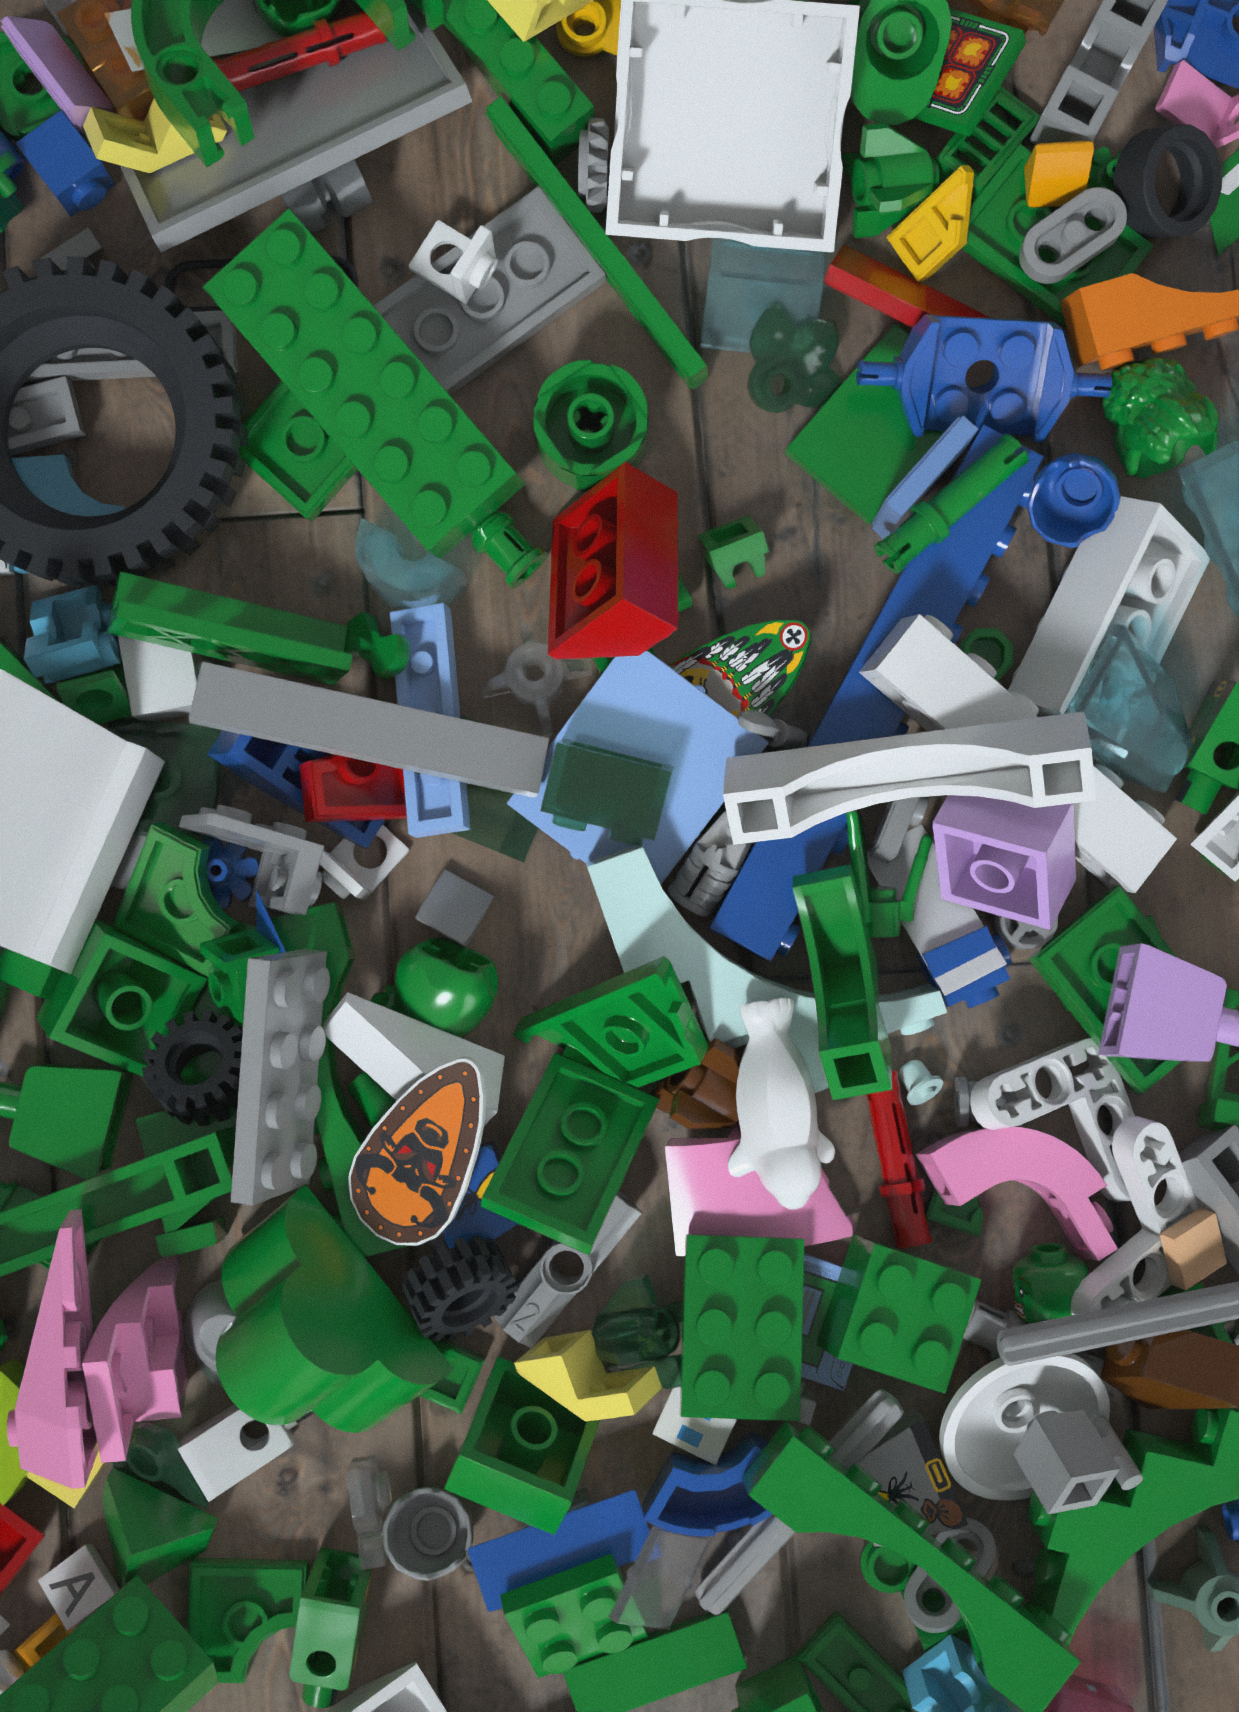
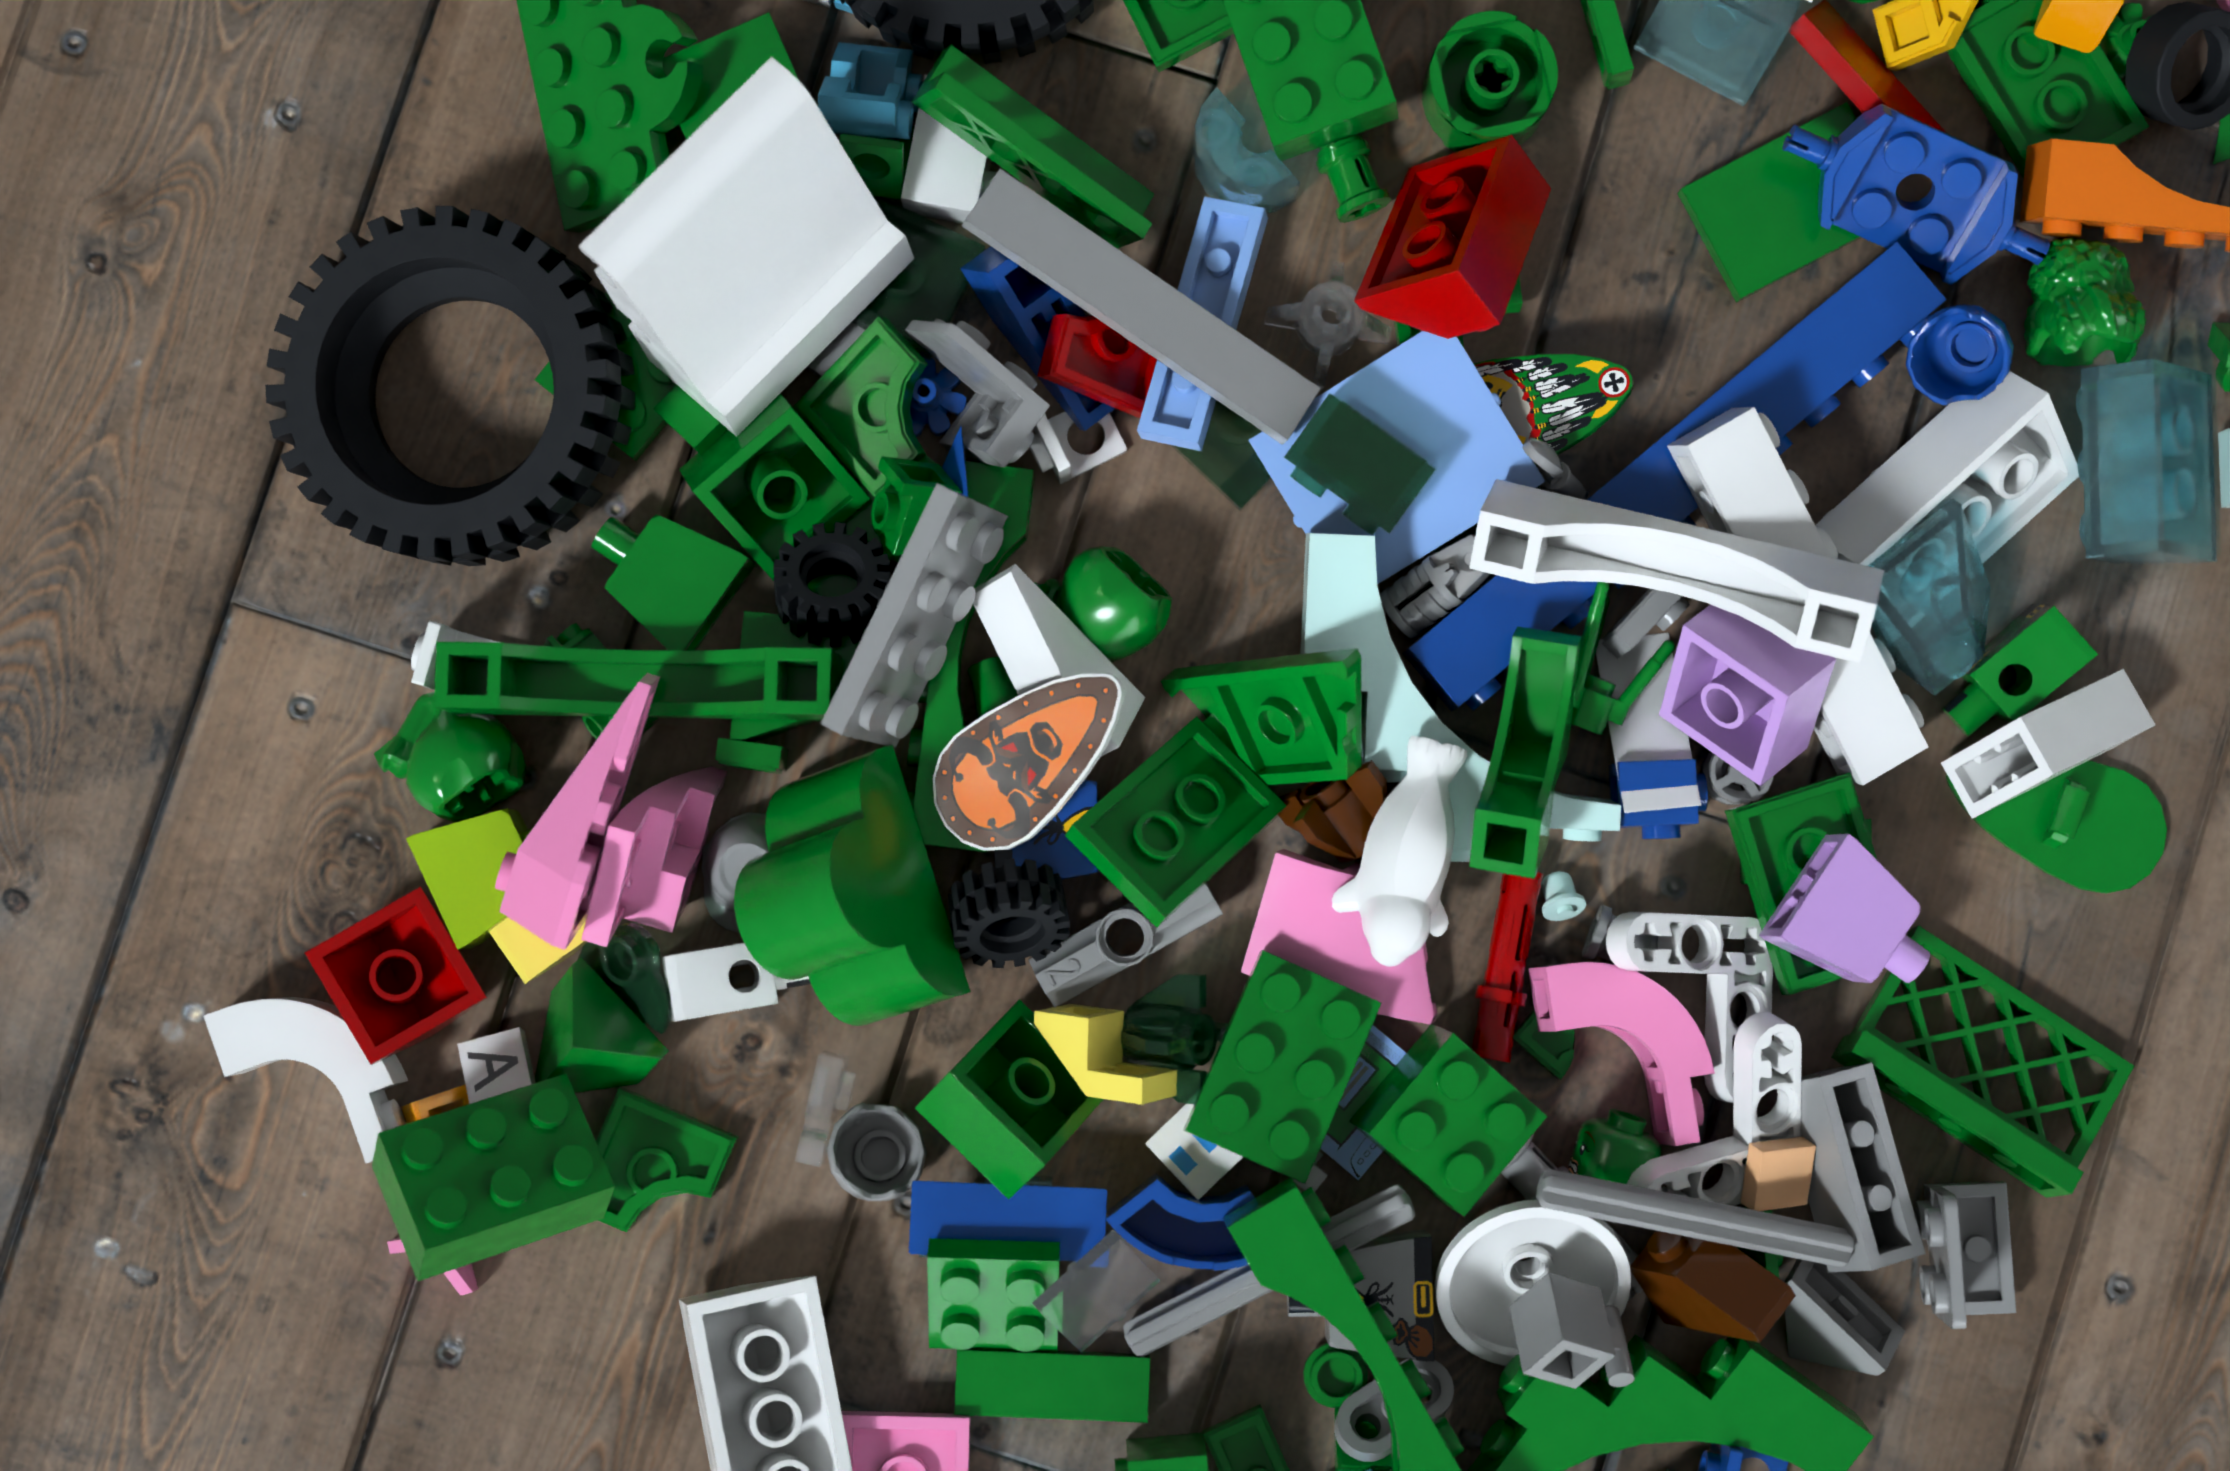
camera: 20 degrees right, 0 degrees up
(330, 1626) = (740, 1207): green torso -> none
(385, 653) = (1184, 237): green piece -> none
(454, 907) = (1151, 527): light grey slope -> none
(456, 1387) = (961, 1014): green tile -> none
(734, 544) = (1587, 265): green tile -> none
(797, 355) = (1732, 96): clear green plate -> none
(924, 476) = (1812, 272): medium blue tile -> none
(932, 519) = (1806, 317): green pin -> none
(992, 647) = (1816, 476): green tile -> none
(1070, 238) = (2063, 82): light grey plate -> none

